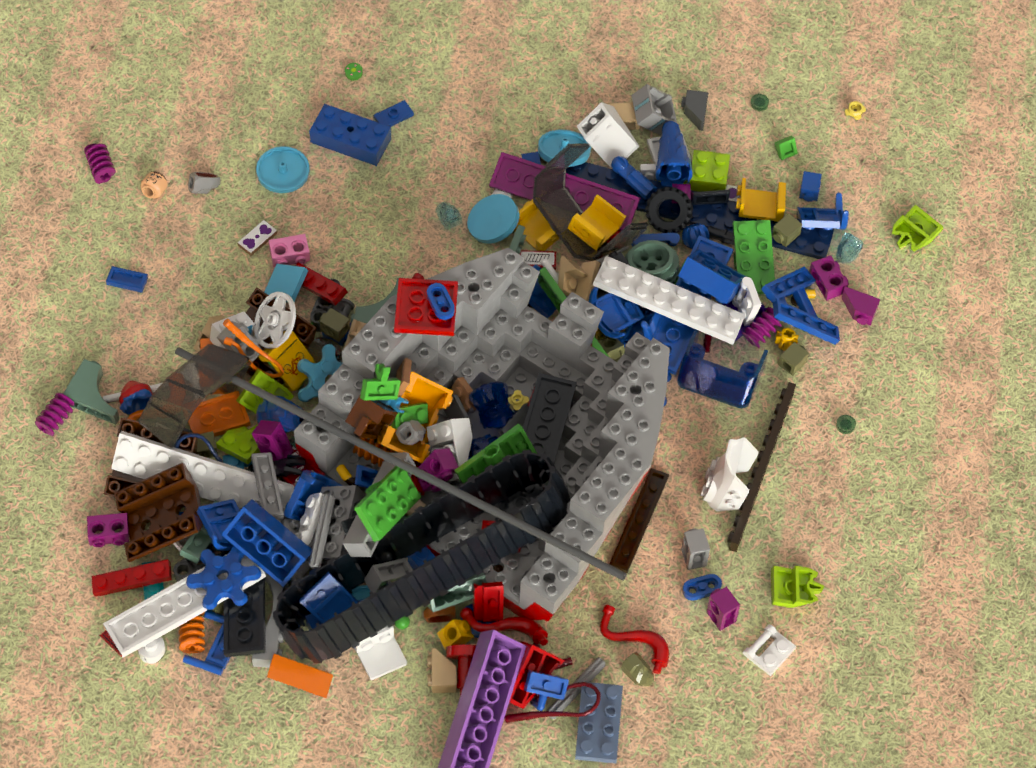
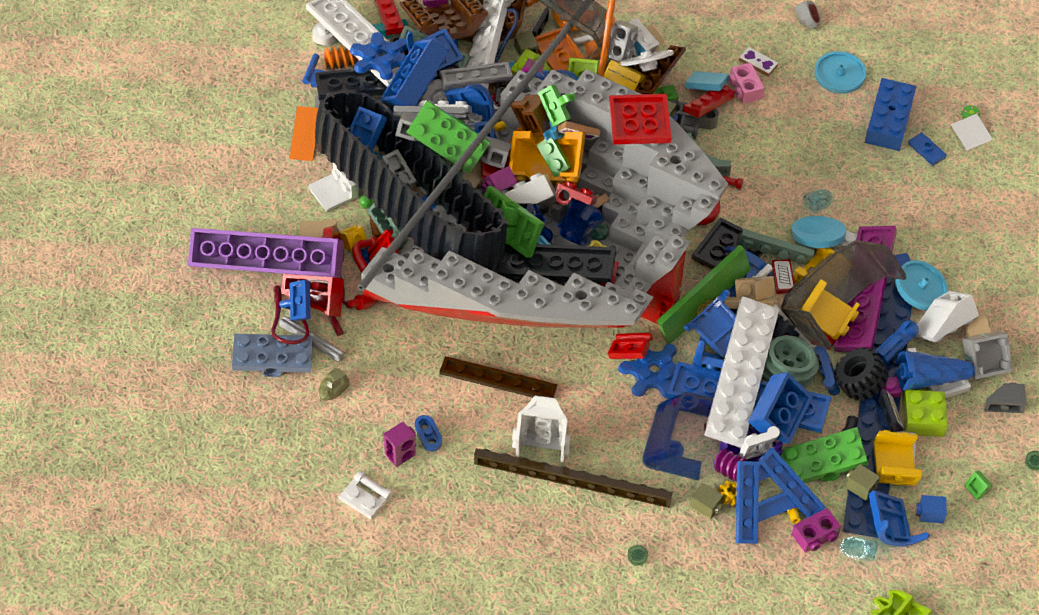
camera: 85 degrees right, 5 degrees down
(377, 75) = (971, 132): none -> white sticker
(410, 432) = (536, 160): light grey rock -> none
(441, 302) = (640, 122): blue plate -> none
(464, 404) = (583, 195): none -> red plate
(612, 347) = (683, 341): olive brick -> none
(654, 640) = (366, 396): red animal -> none
(692, 232) = (841, 404): blue piece -> none
(695, 548) = (464, 417): light grey brick -> none
(793, 586) = (436, 510): lime plate -> none
(860, 305) = (785, 562): magenta slope -> none

